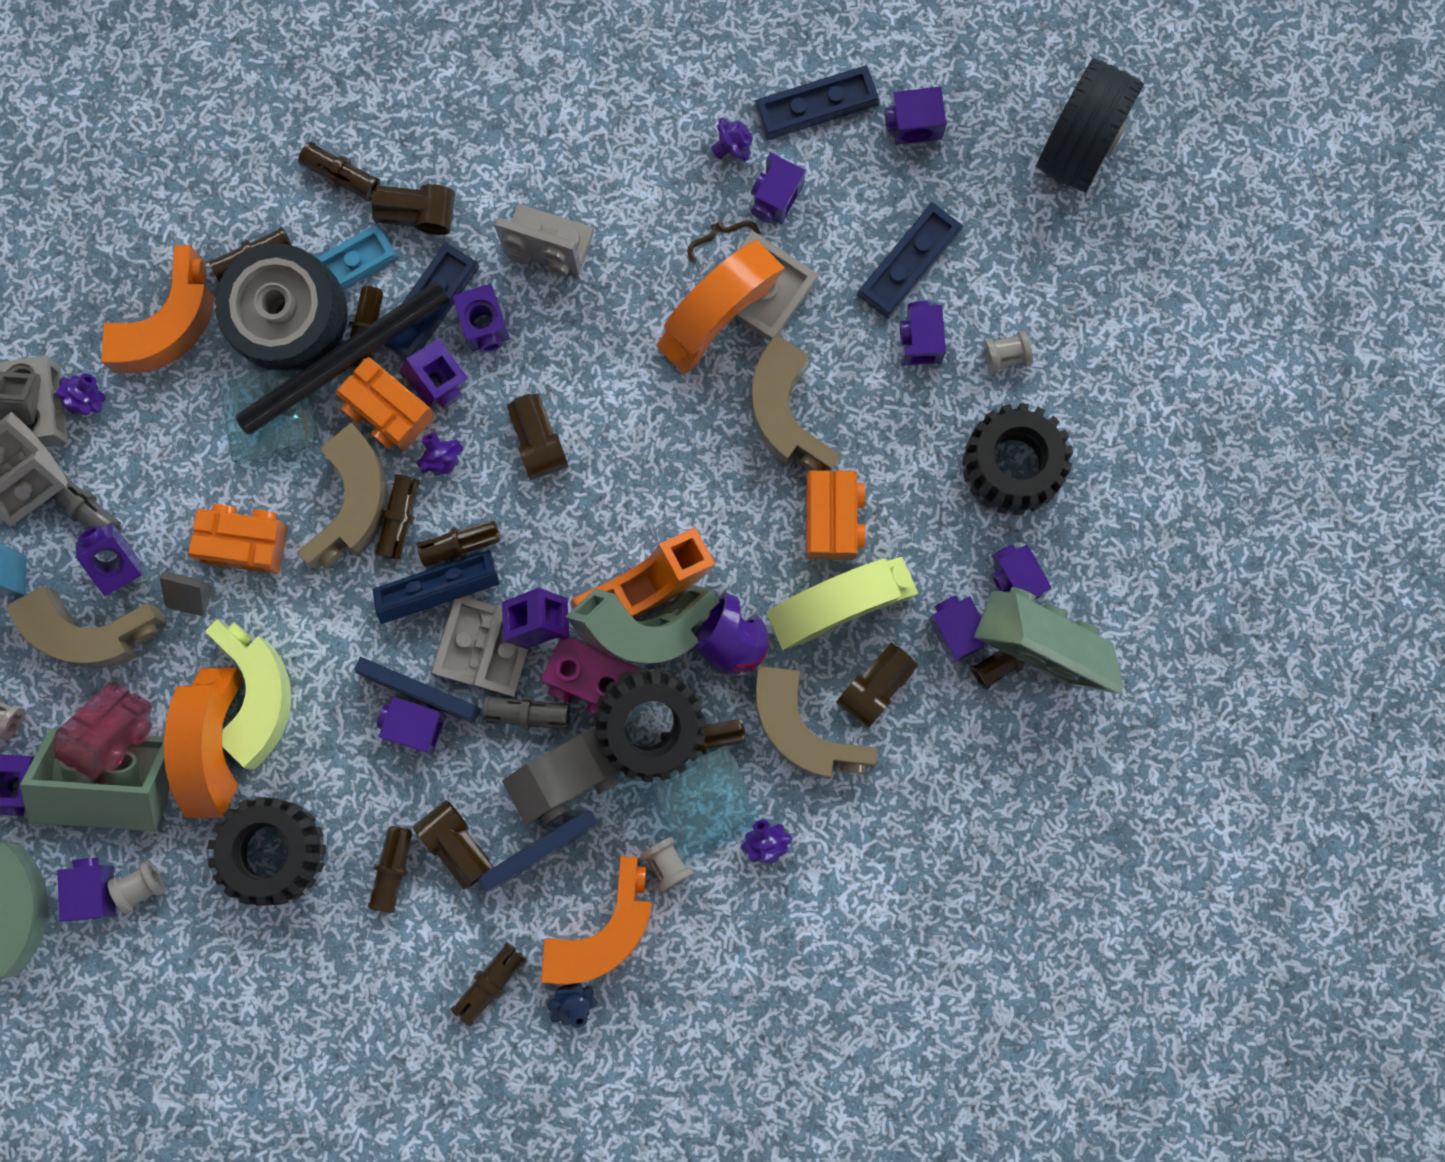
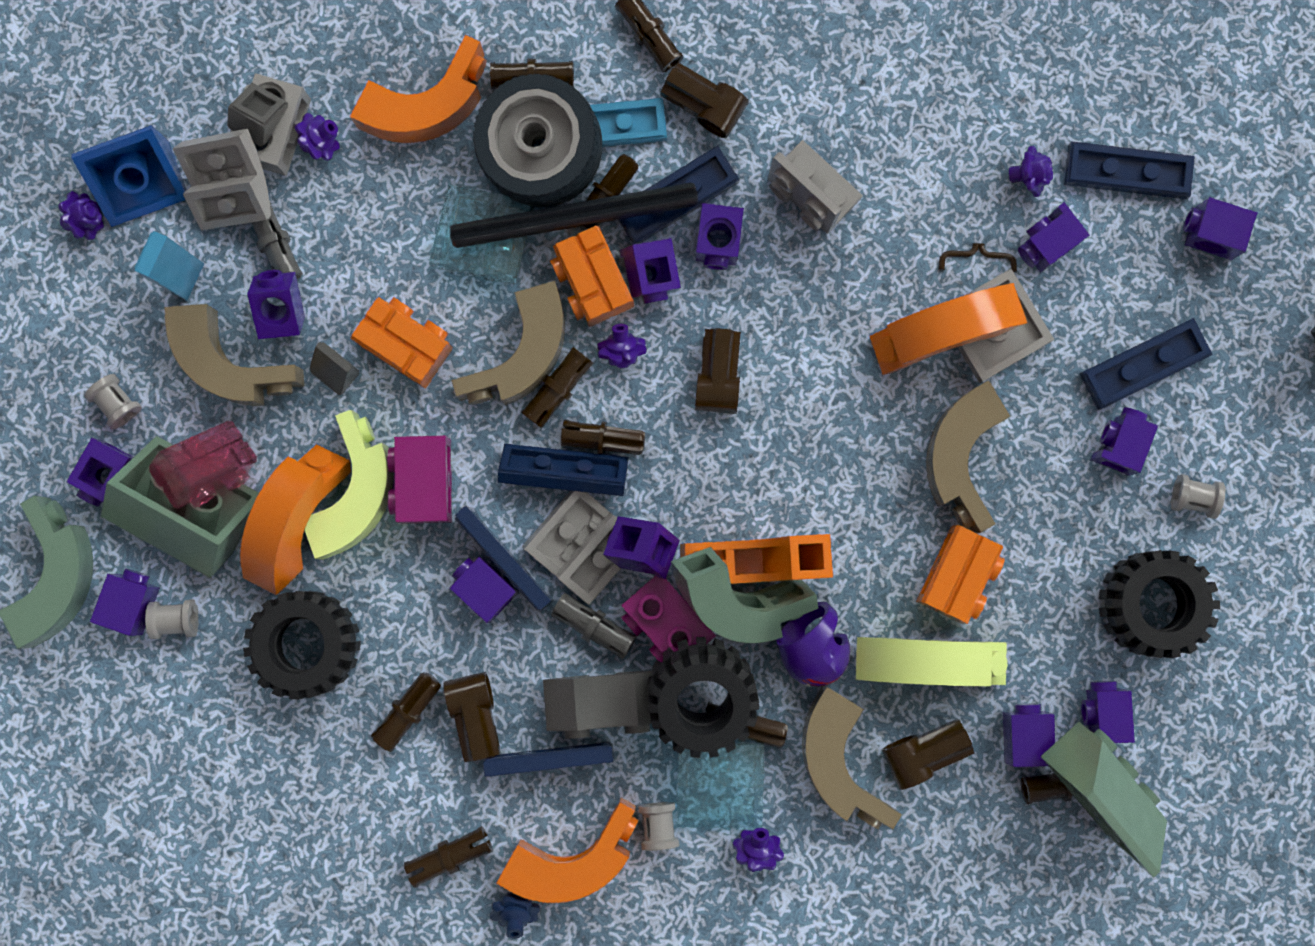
camera: 25 degrees right, 5 degrees up
(310, 653) = (421, 479): none -> magenta brick

